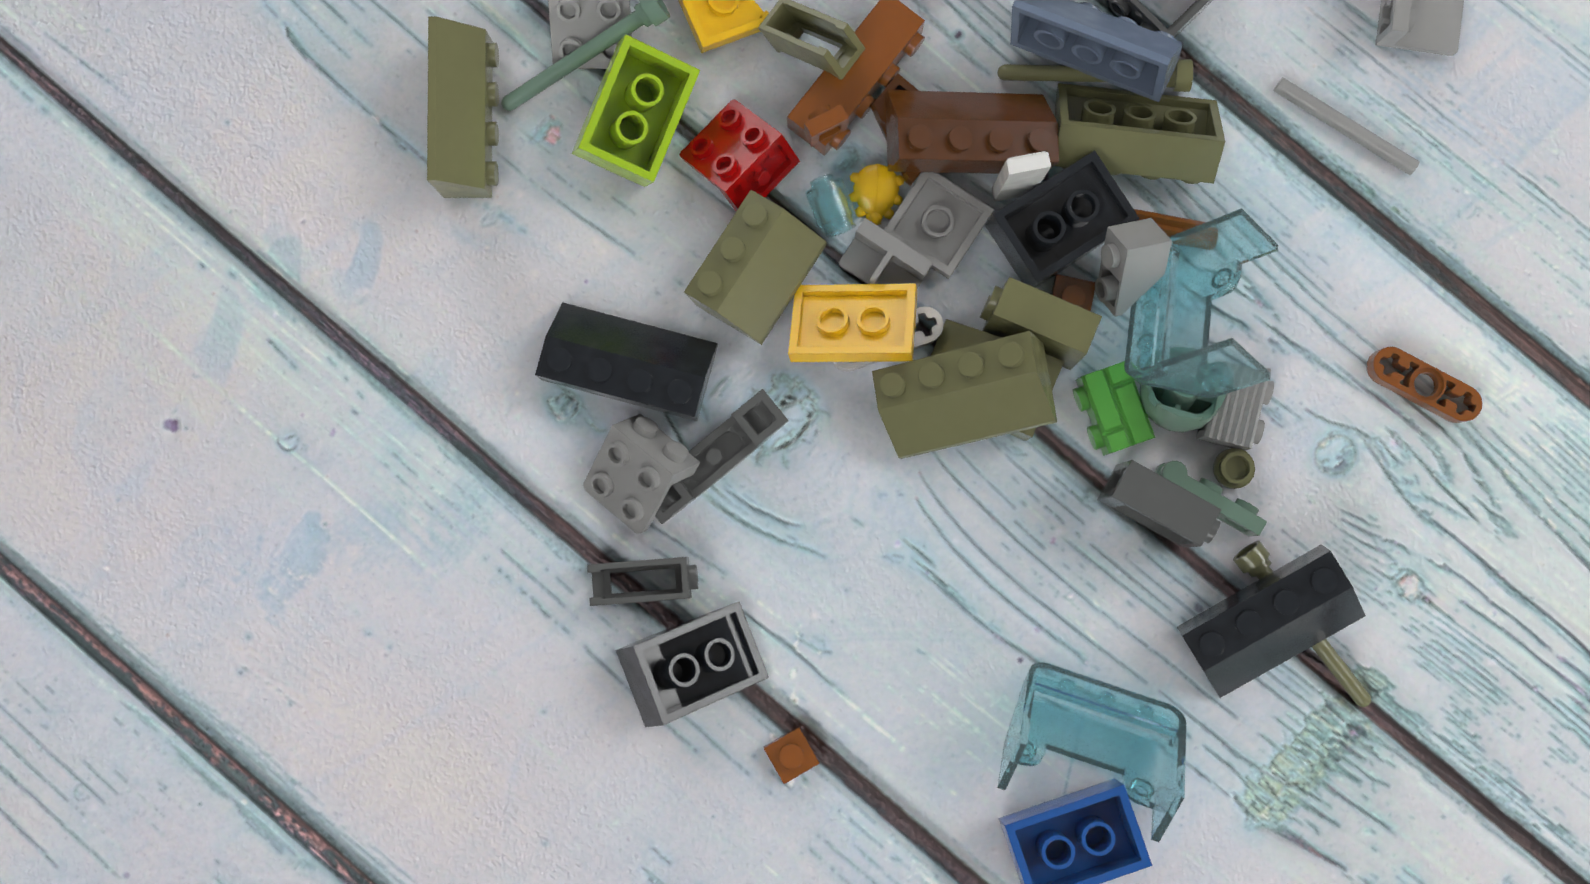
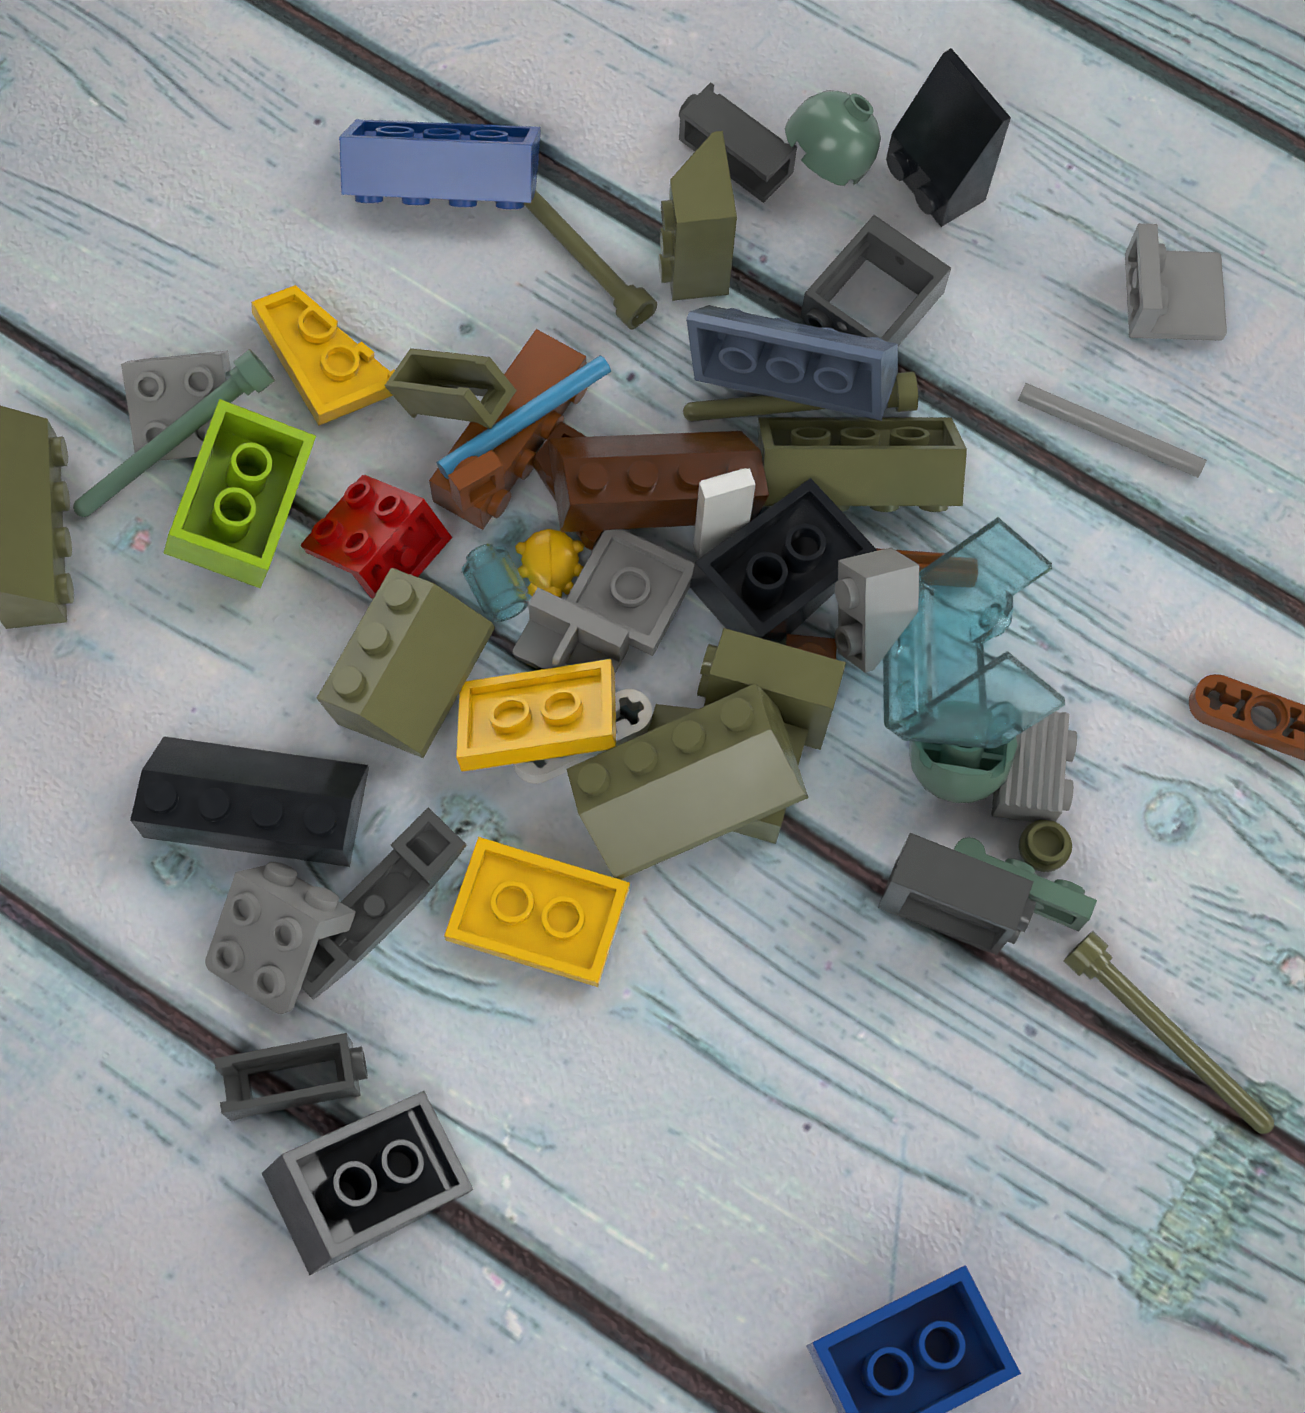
camera: 10 degrees left, 15 degrees down
(791, 755) = (514, 1292): dark orange plate -> none
(837, 475) = (537, 911): none -> yellow plate
(869, 70) = (527, 414): none -> dark azure bar
(1103, 728) = (925, 1204): clear light blue windscreen -> none
(1113, 409) = (881, 787): bright green brick -> none
(1272, 620) = (1127, 1030): black slope -> none

